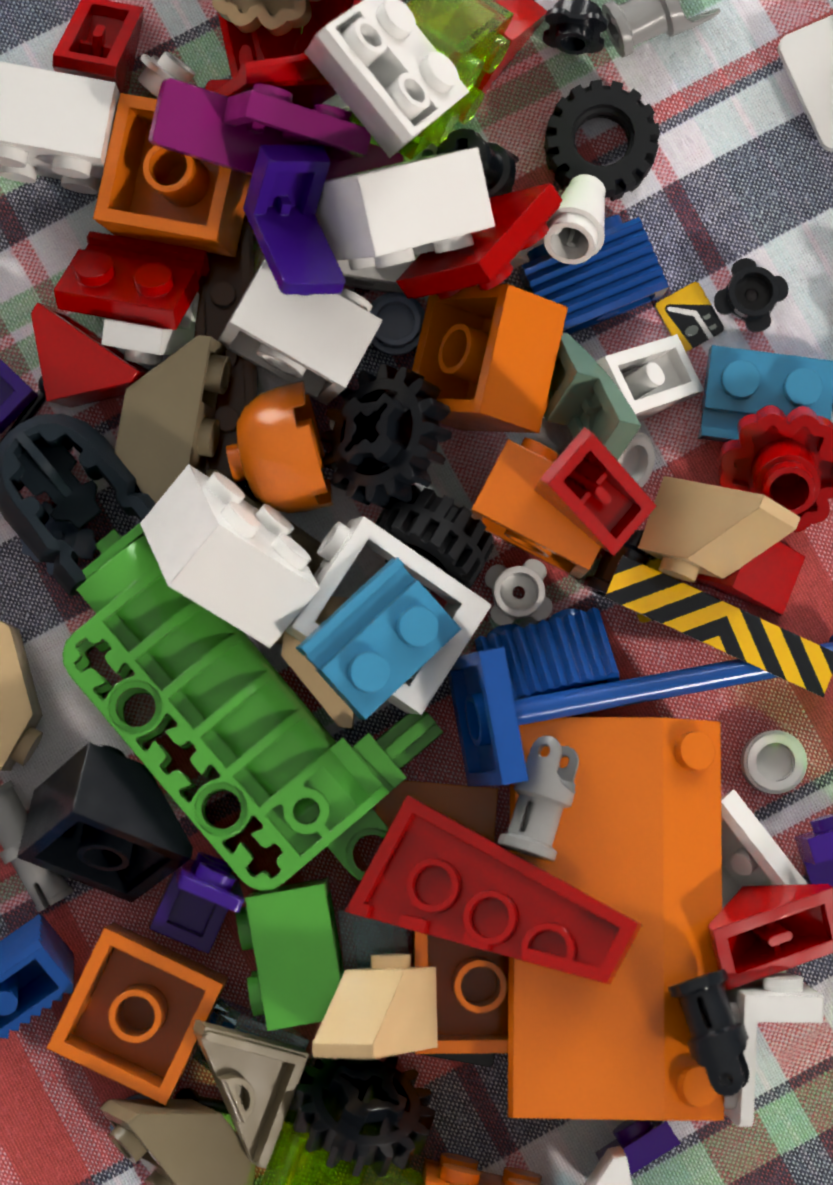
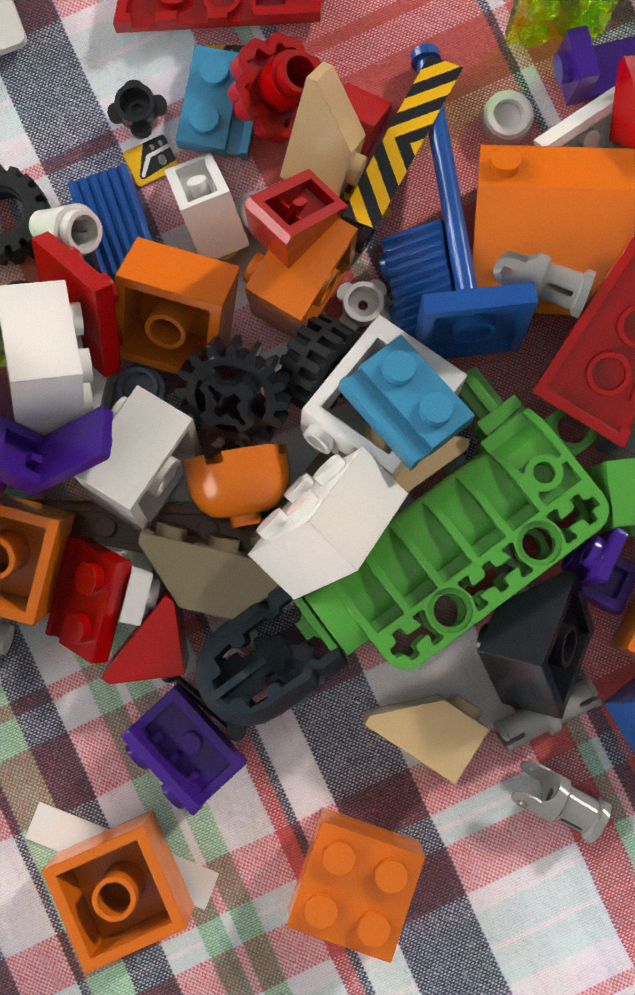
camera: 80 degrees left, 0 degrees up
(468, 805) = (527, 367): orange sticker -> none
(588, 398) = (215, 225): sand green slope -> none

